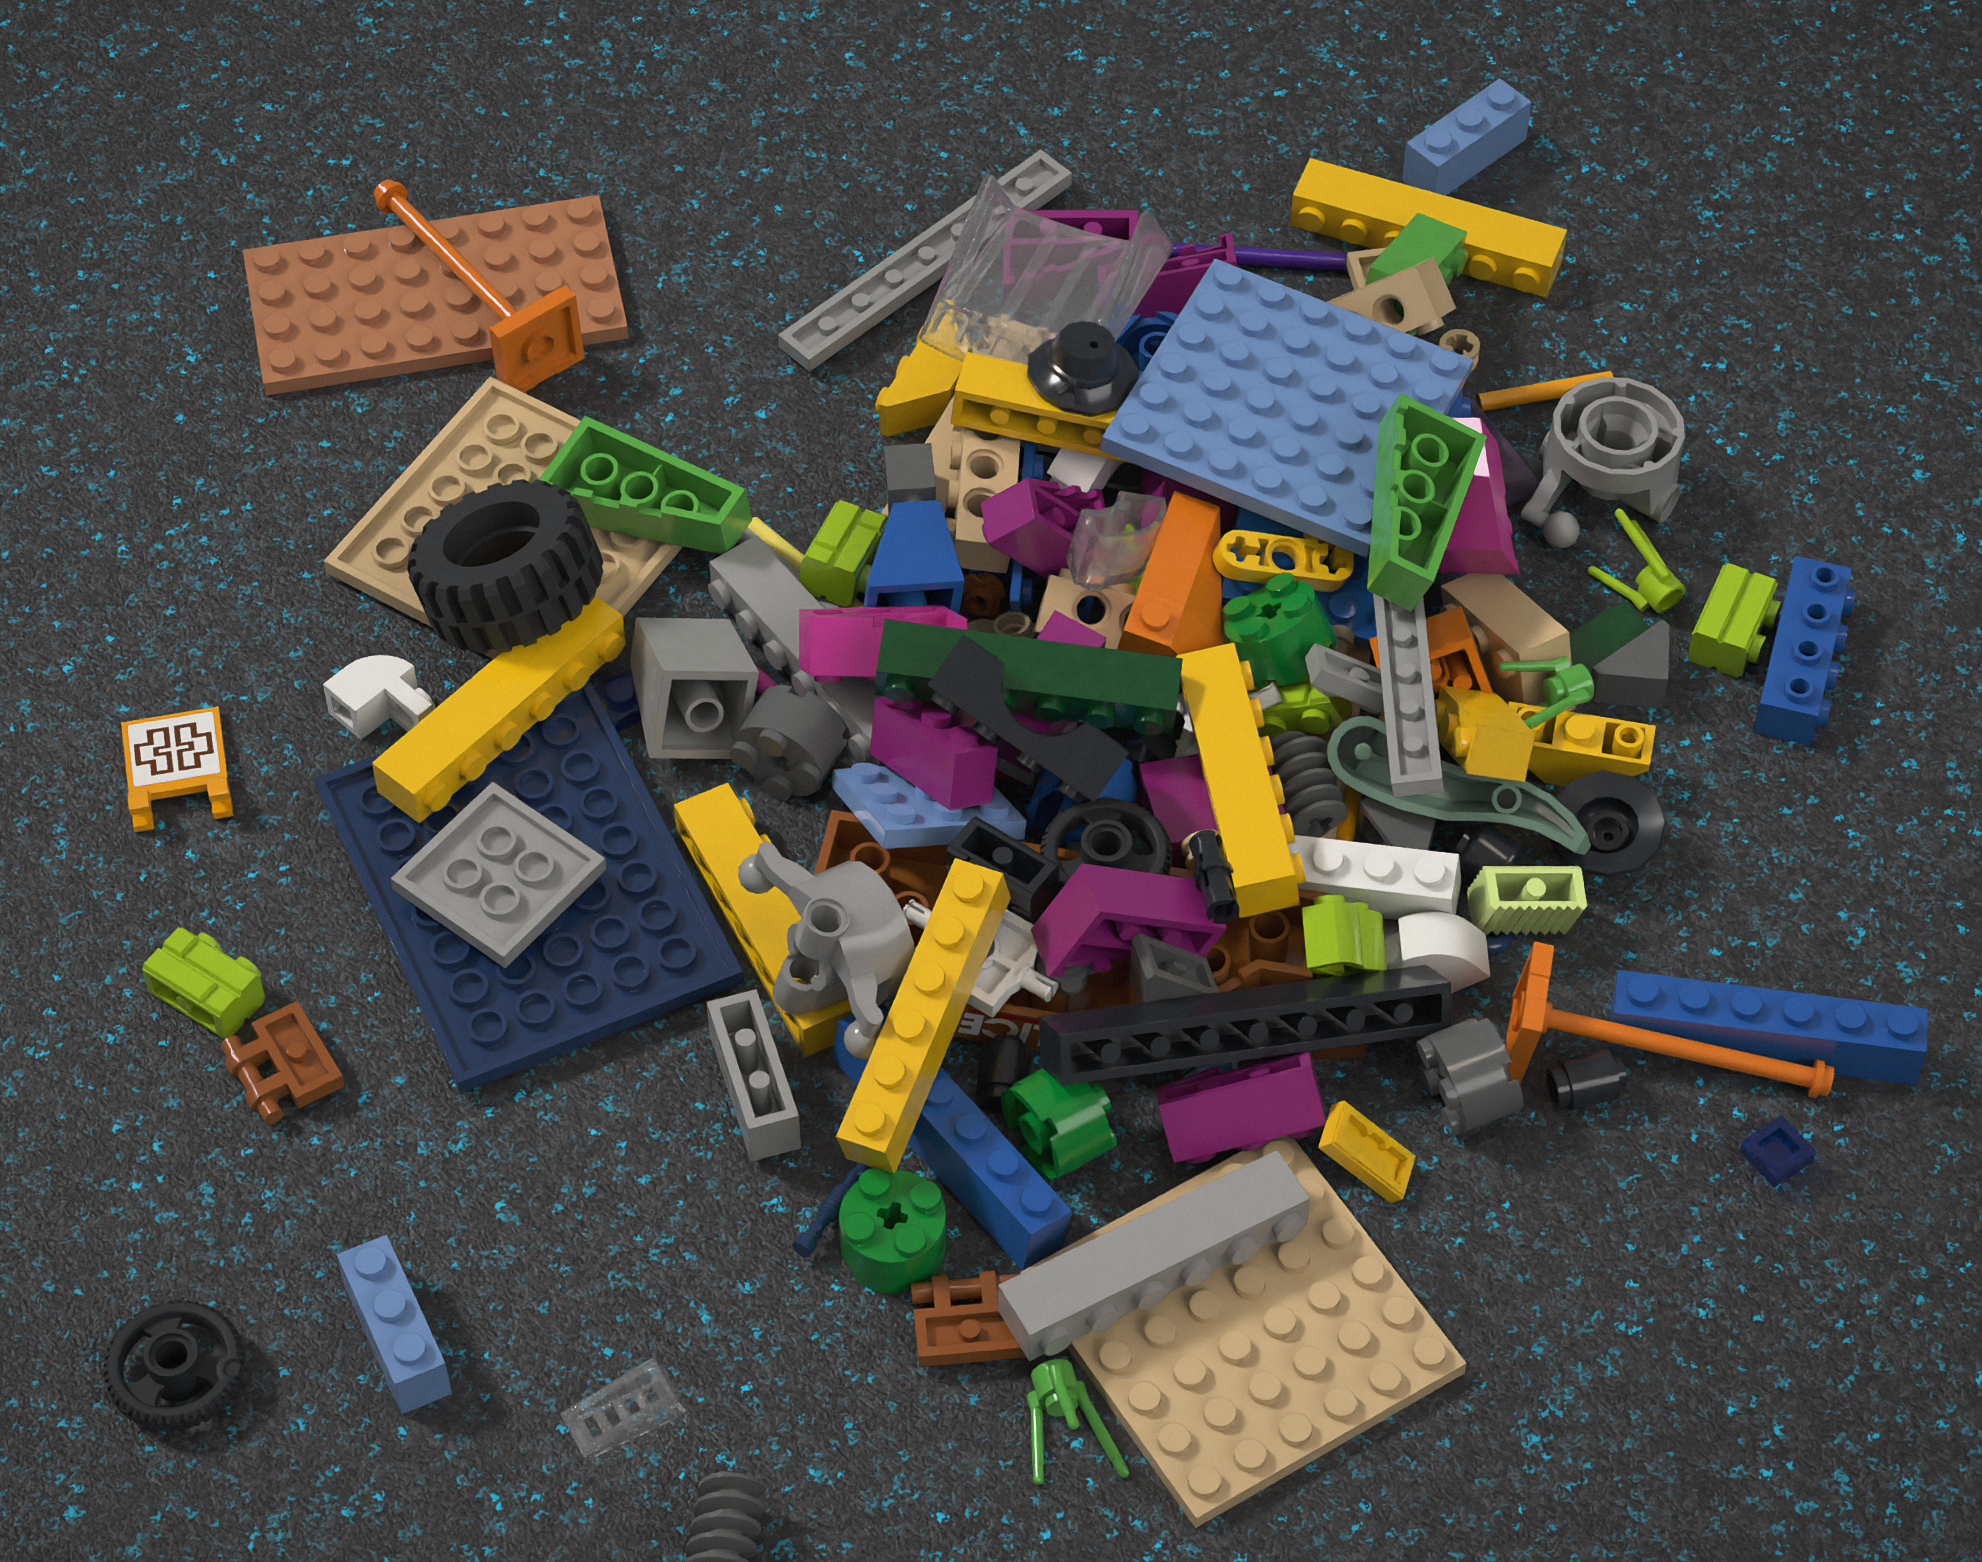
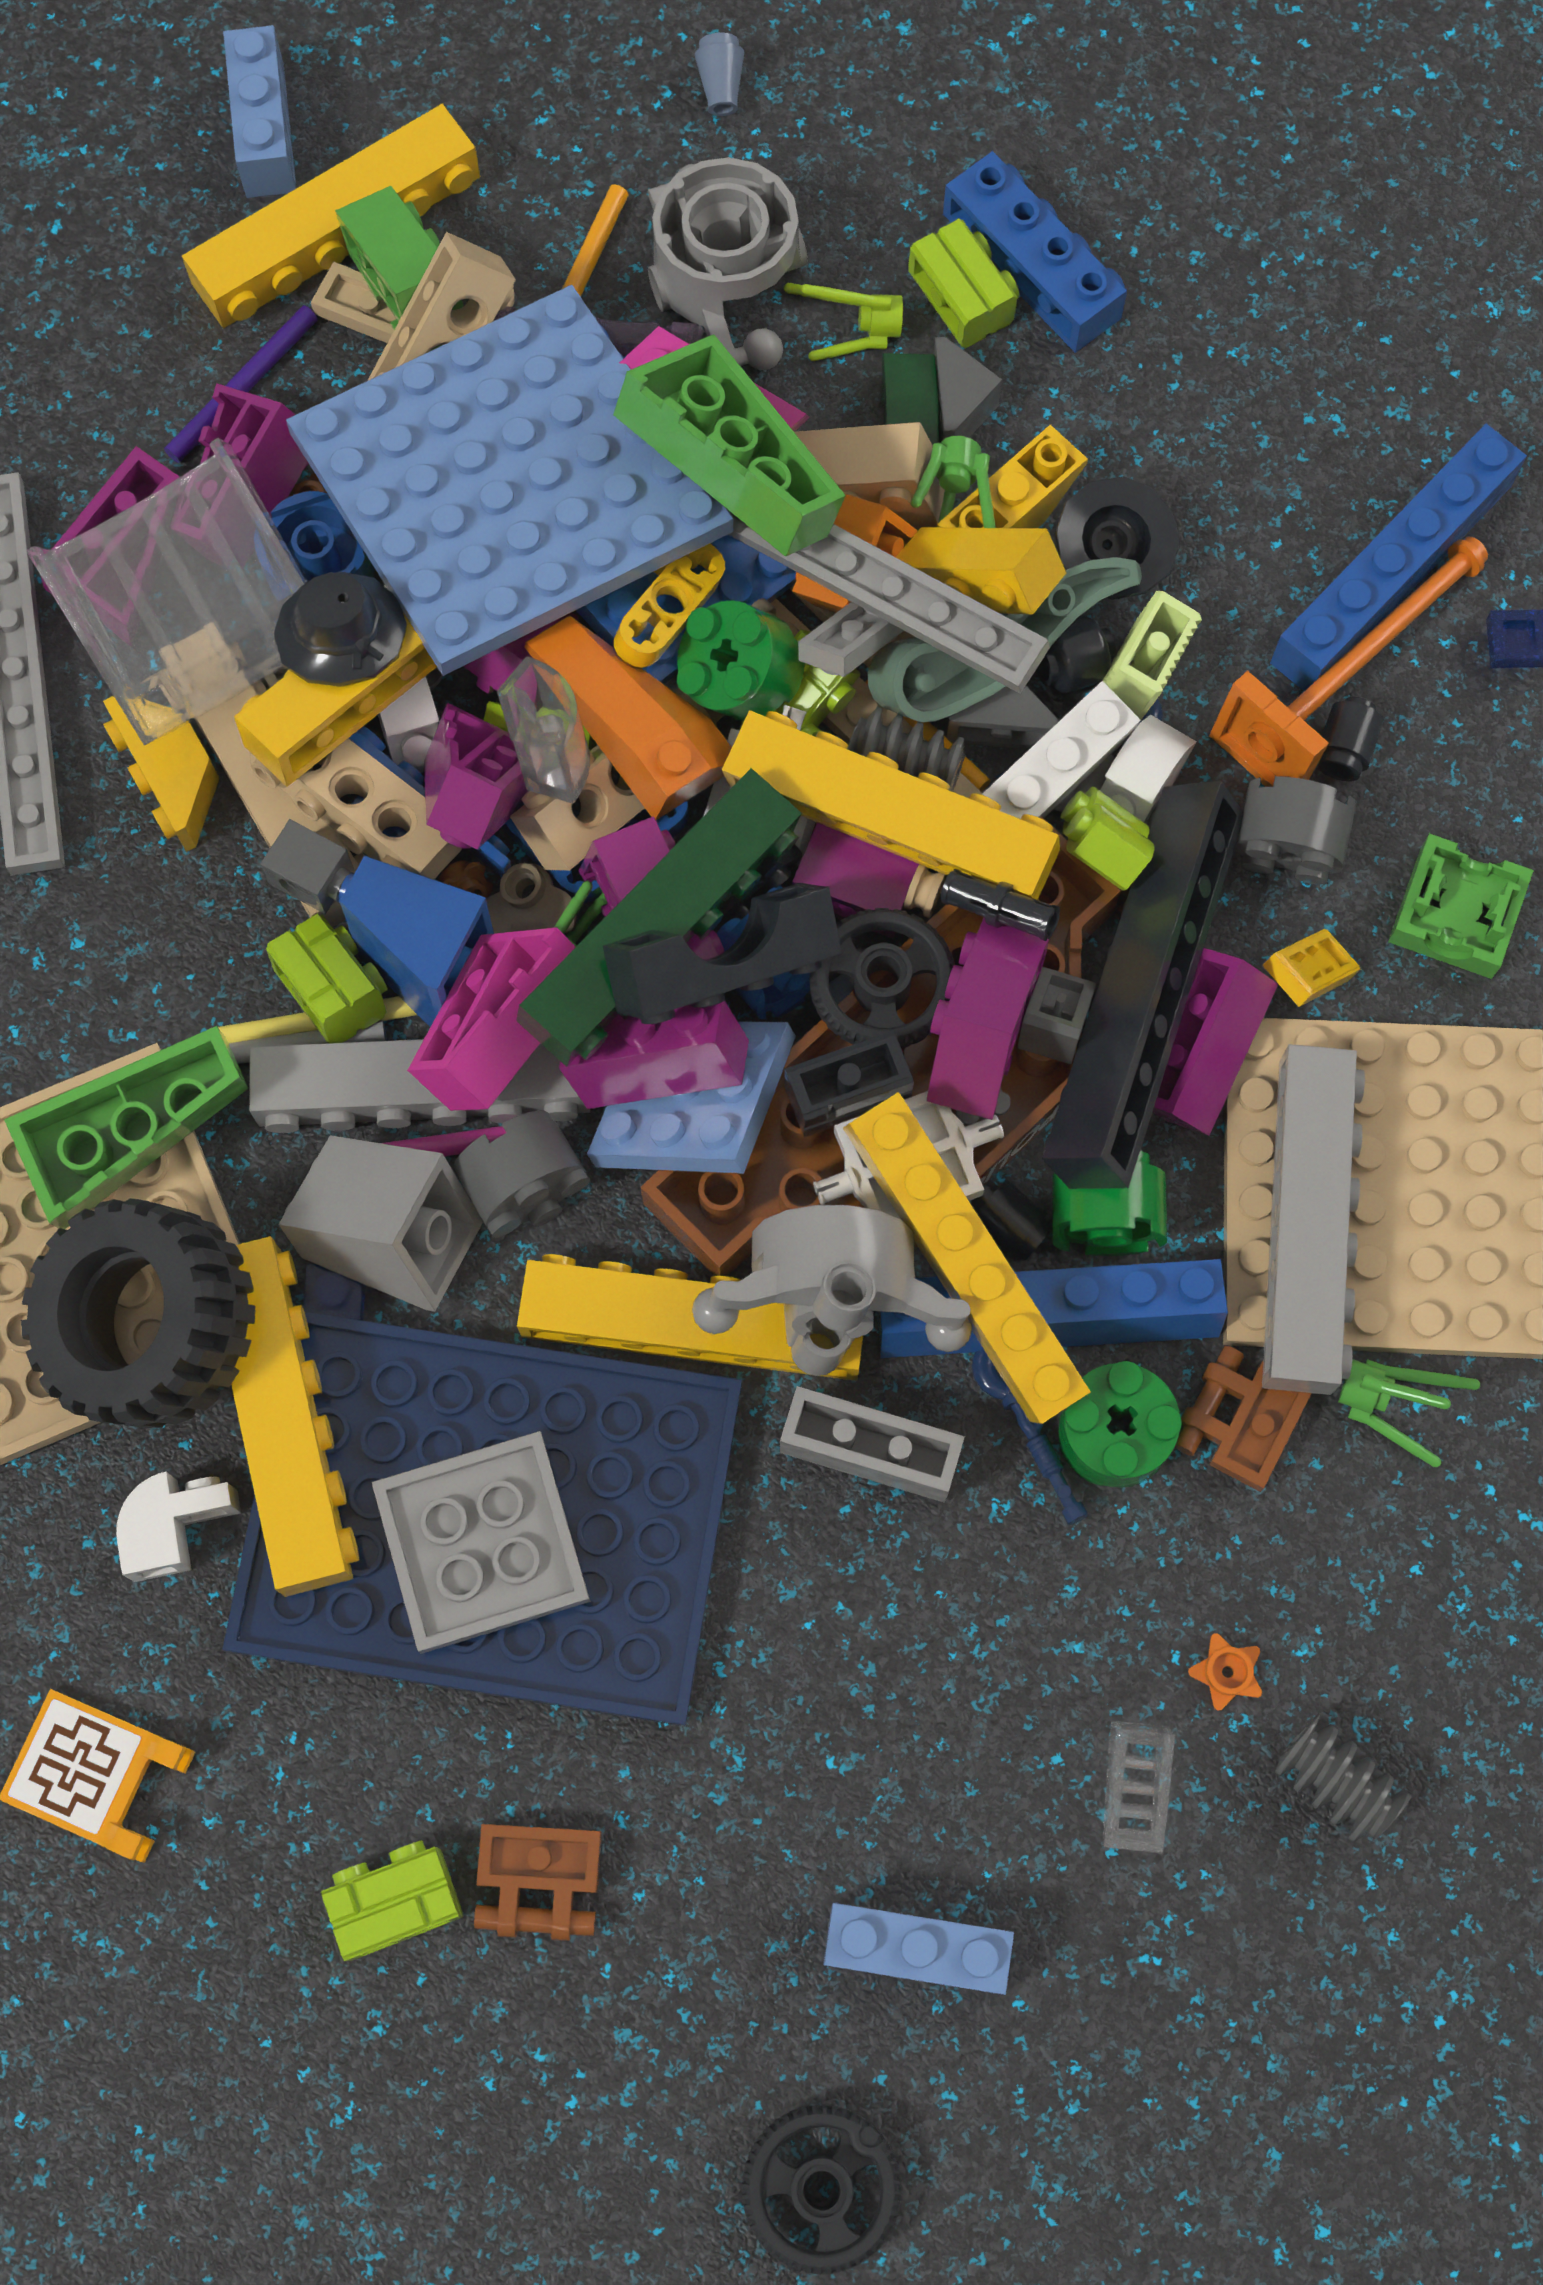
camera: 55 degrees left, 20 degrees up
(757, 1413) = (1239, 1660): none -> orange plate
(1493, 1247) = (1451, 927): none -> bright green brick
(1765, 378) = (720, 70): none -> sand blue cone

